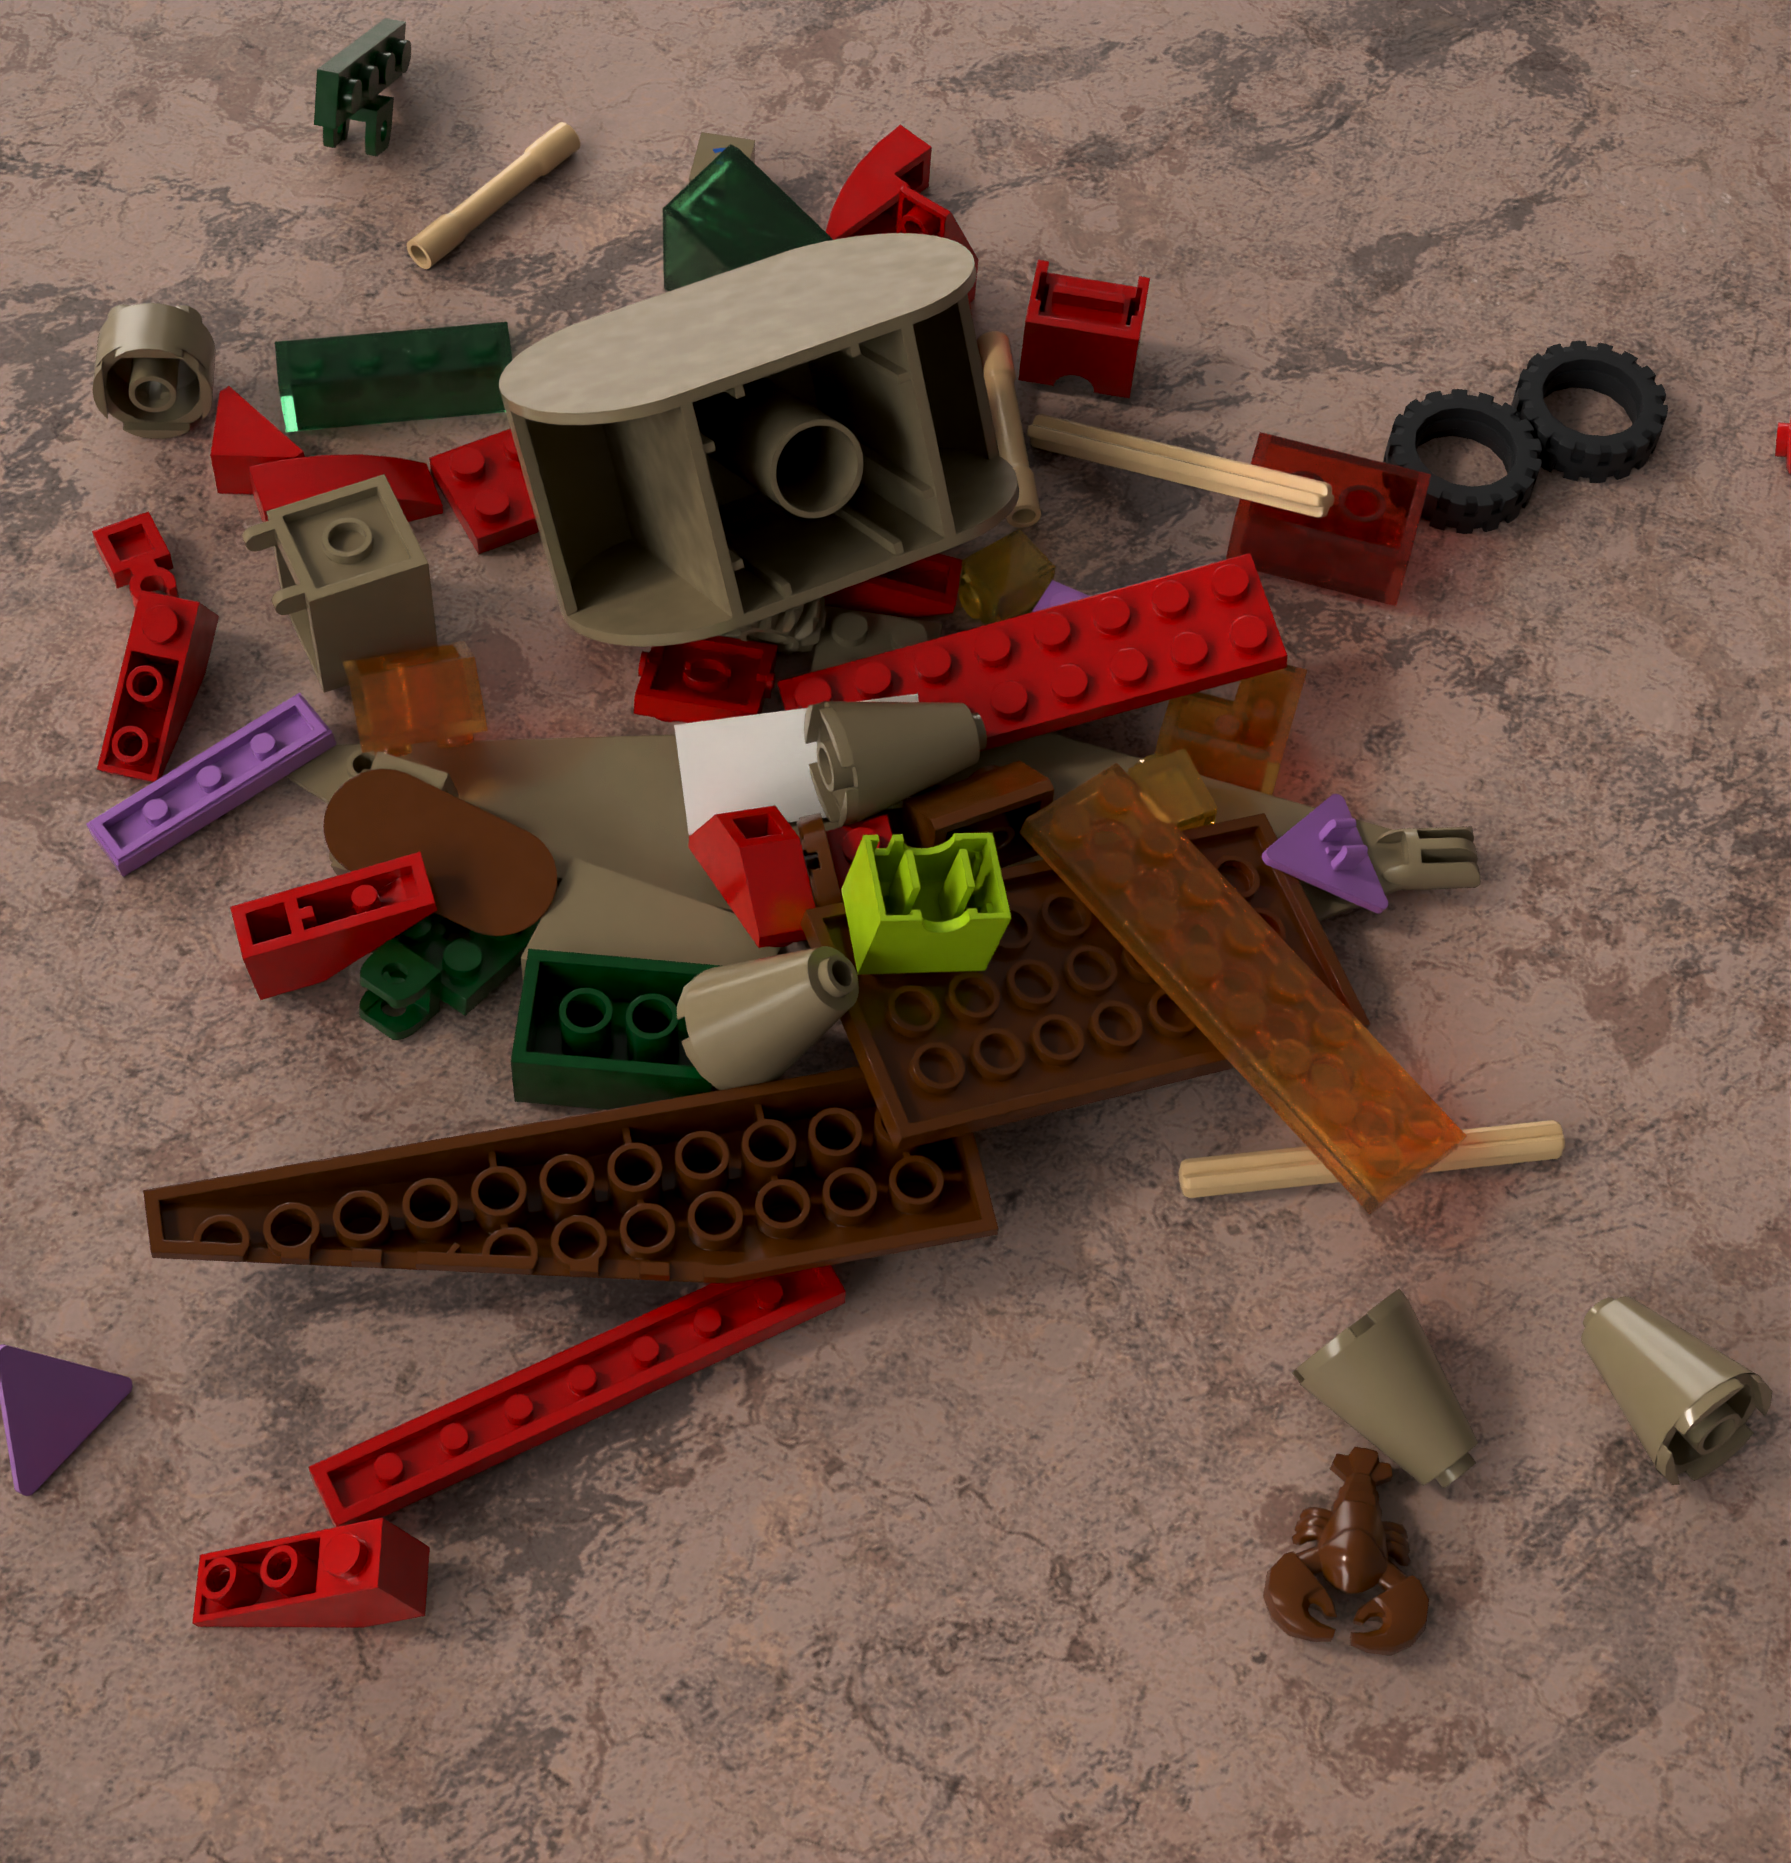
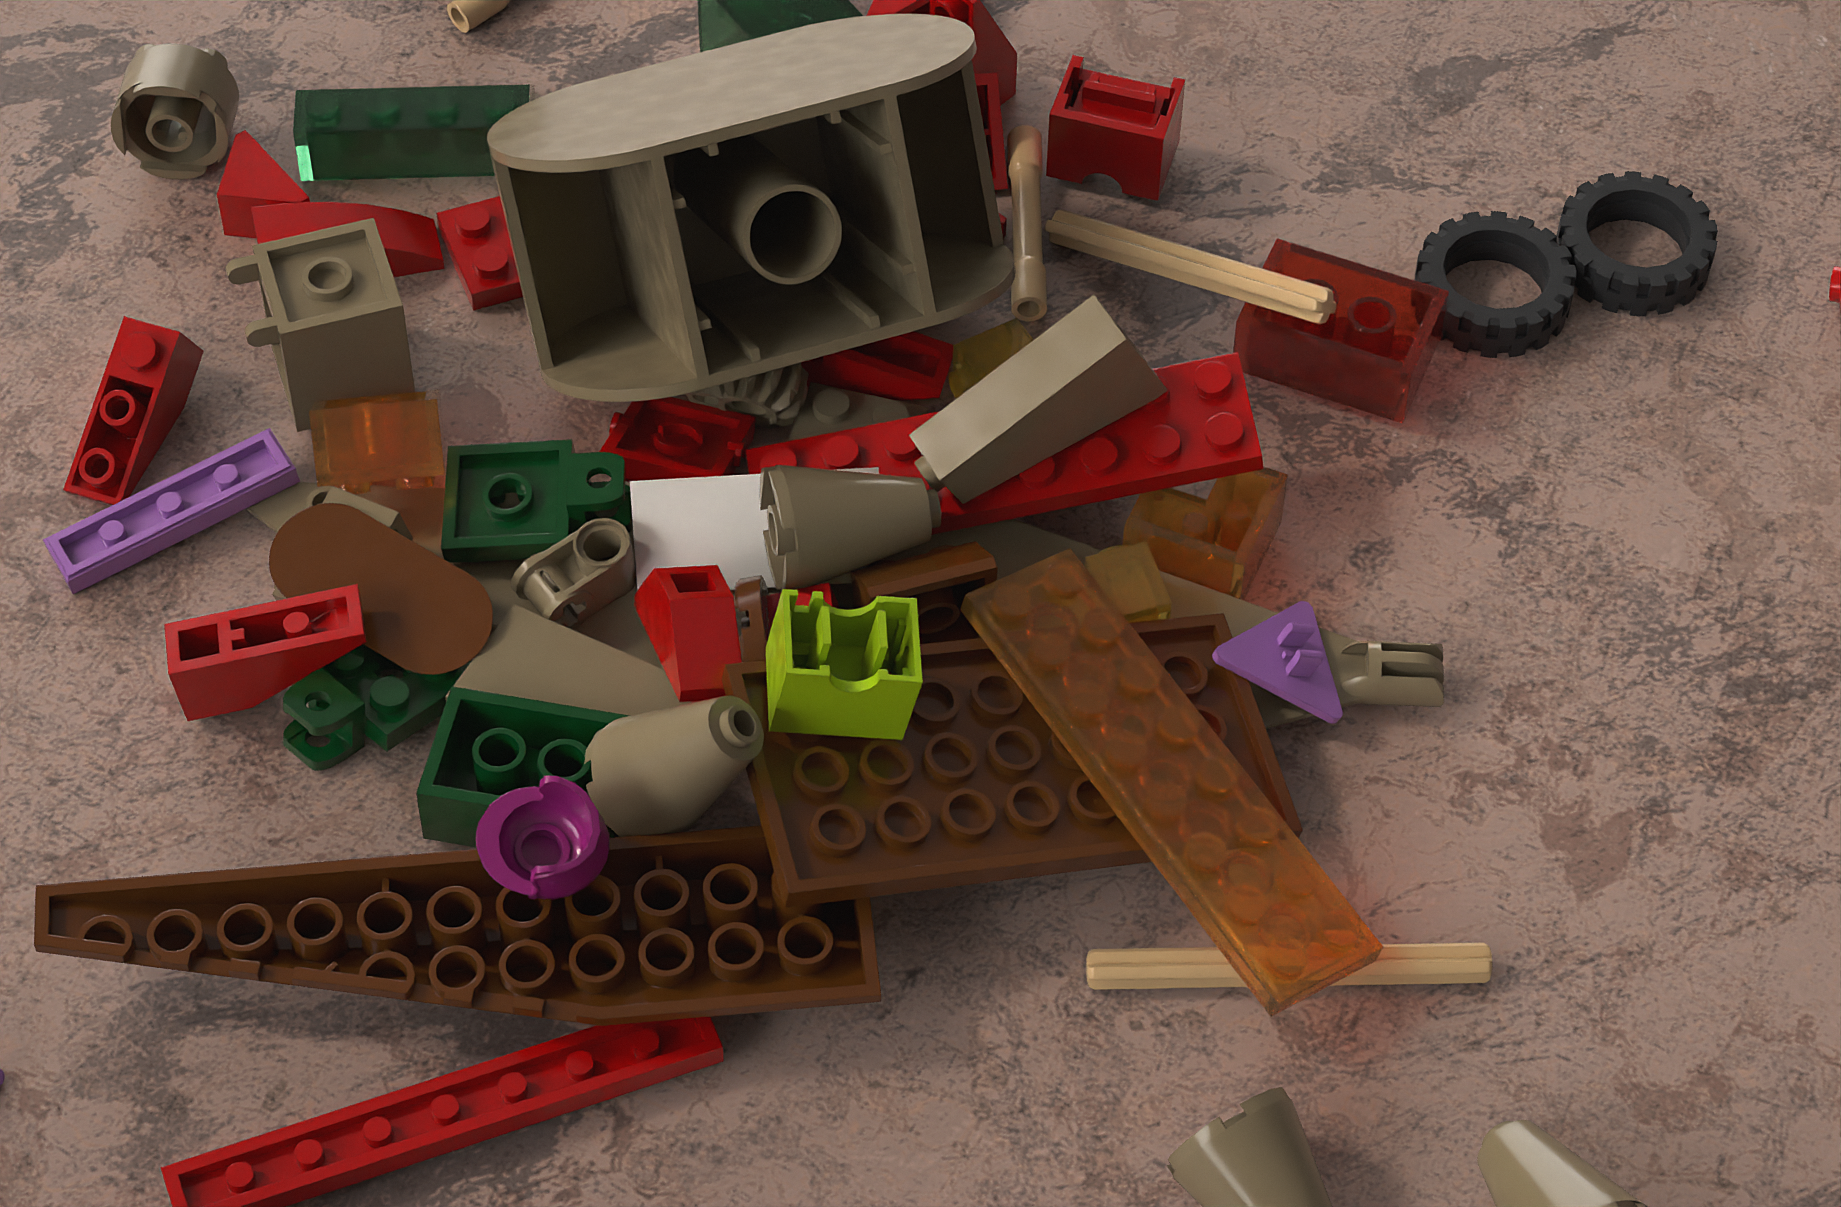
camera: 10 degrees right, 5 degrees down
(136, 556) = (132, 286): red plate -> none
(597, 742) = (552, 490): none -> dark green plate
(623, 831) = (573, 575): none -> dark tan piece
(652, 1104) = (543, 839): none -> magenta helmet
(1068, 621) = (1036, 404): none -> dark tan slope

